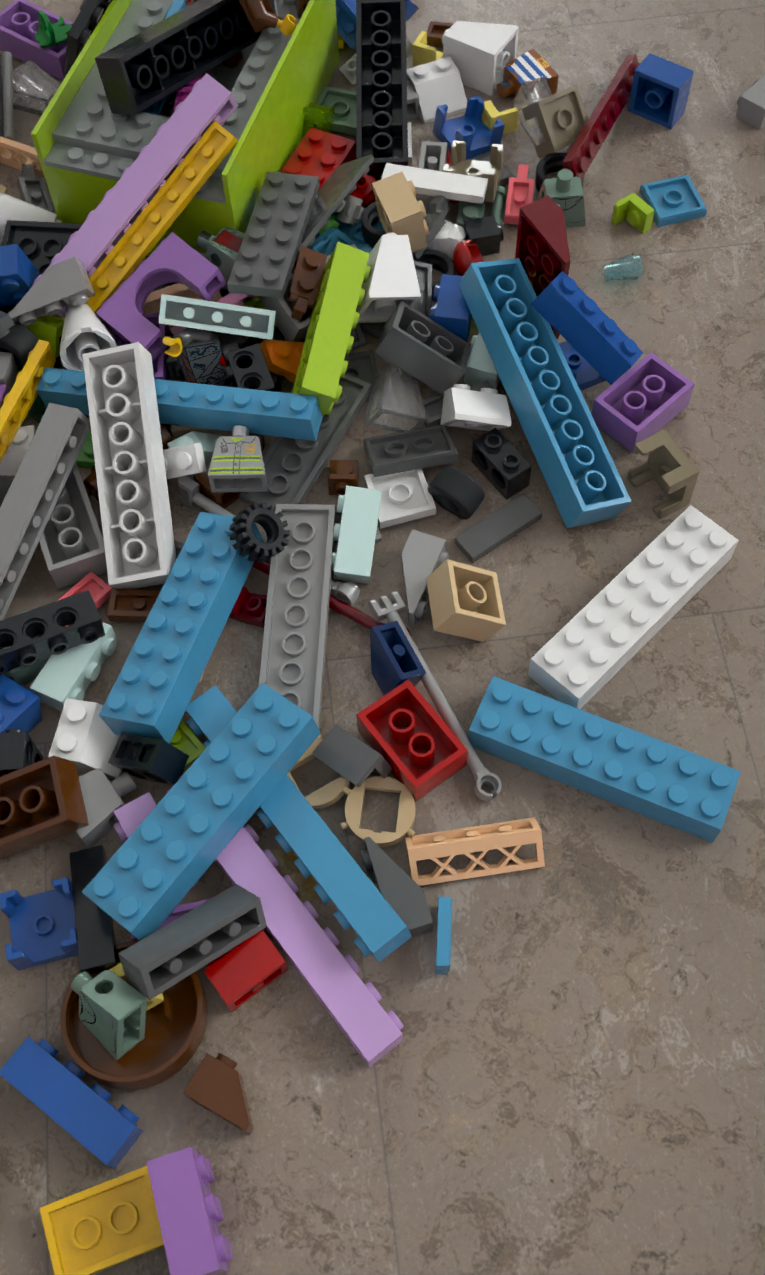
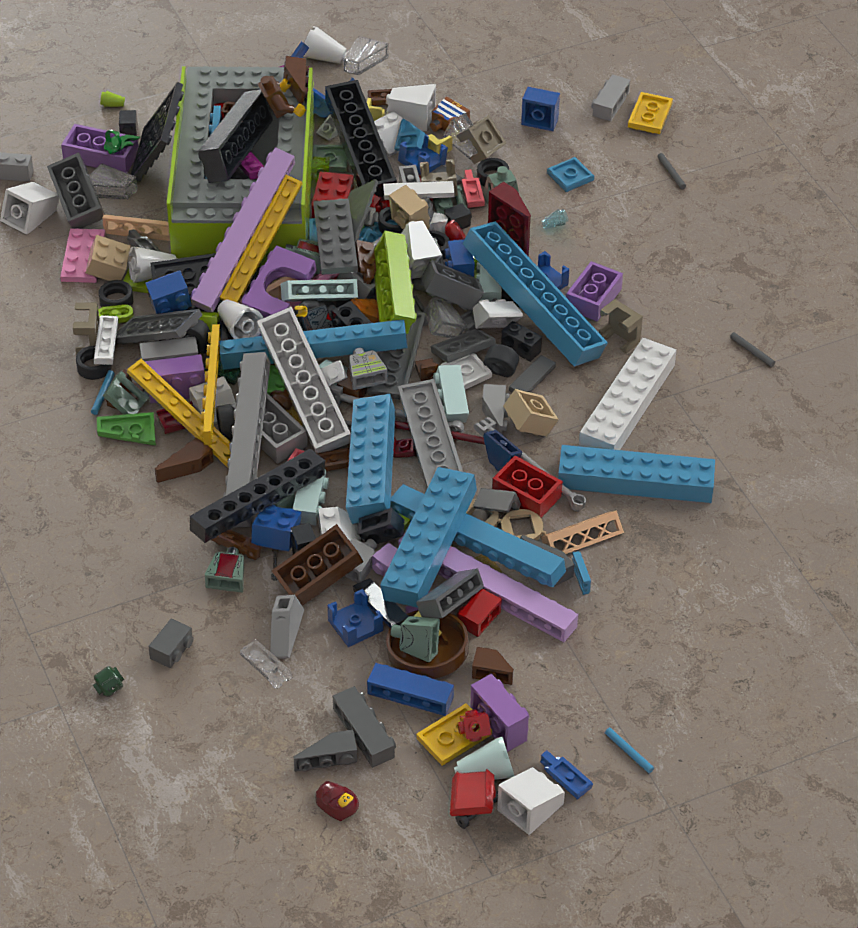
camera: 20 degrees left, 15 degrees down
(8, 127) = (98, 187): light grey bar -> none
(57, 288) = (218, 289): light grey slope -> none
(129, 1241) = (481, 726): none -> red brick
(271, 524) = (398, 398): black tyre -> none
(458, 97) = (411, 135): none -> dark azure wing
(587, 328) = (550, 252): blue brick -> none
(602, 119) = (510, 129): dark red plate -> none
(635, 211) = (550, 185): lime bracket -> none

